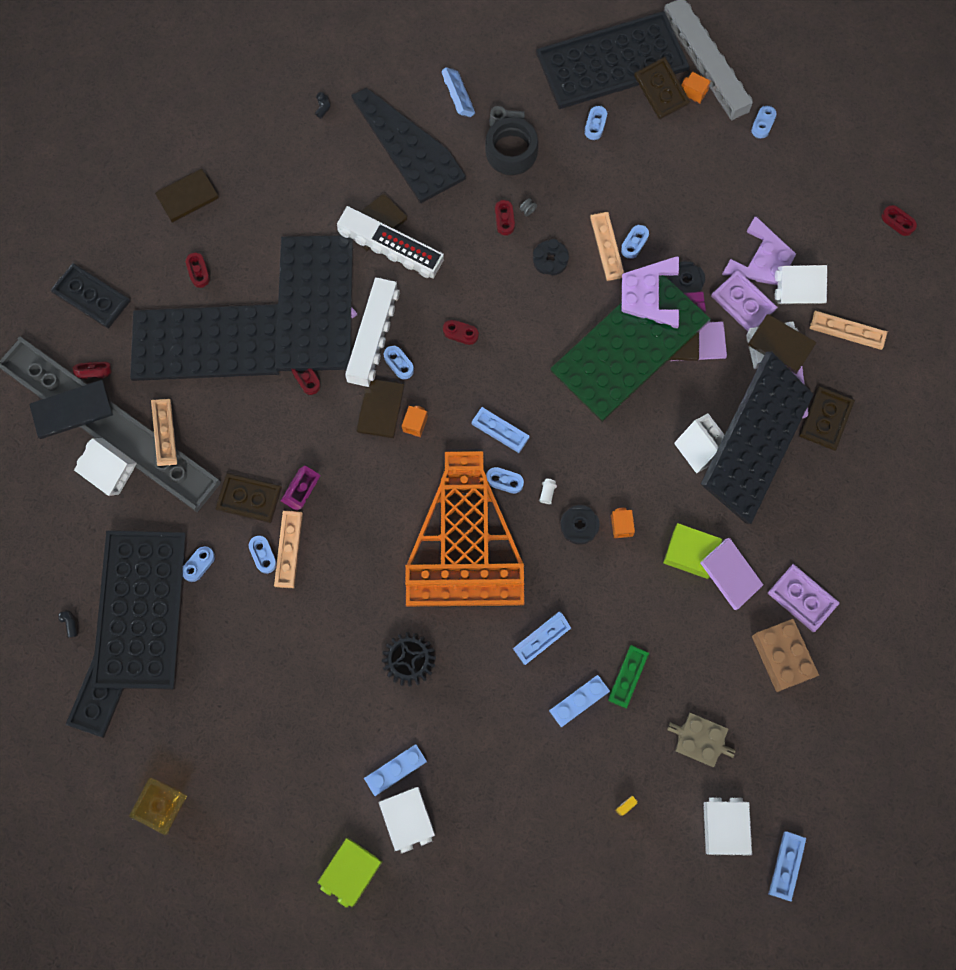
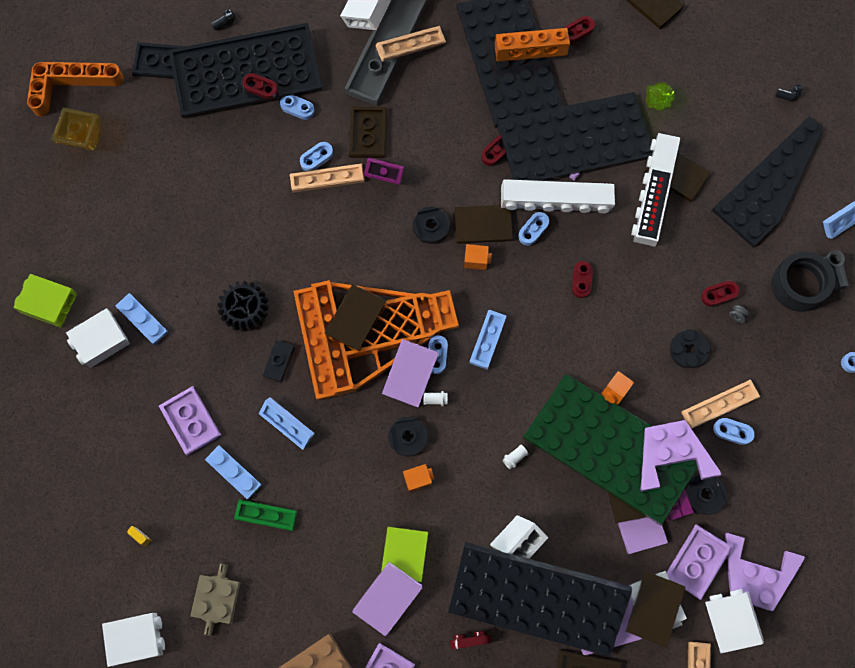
camera: 75 degrees right, 0 degrees up
(86, 809) = (47, 74): none -> orange beam
(166, 594) = (261, 86): none -> dark red plate
(205, 314) = (532, 44): none -> orange brick
(294, 215) = (659, 96): none -> clear neon green brick
(372, 467) = (437, 217): none -> black plate
(452, 546) = (355, 317): none -> dark brown tile
(474, 635) = (278, 361): none -> black plate
(516, 736) = (190, 420): none -> lavender tile
(519, 507) = (410, 373): none -> lavender tile
(575, 326) = (617, 388): none -> orange brick
(619, 431) = (515, 456): none -> white pin
(779, 517) = (479, 638): none -> dark red plate

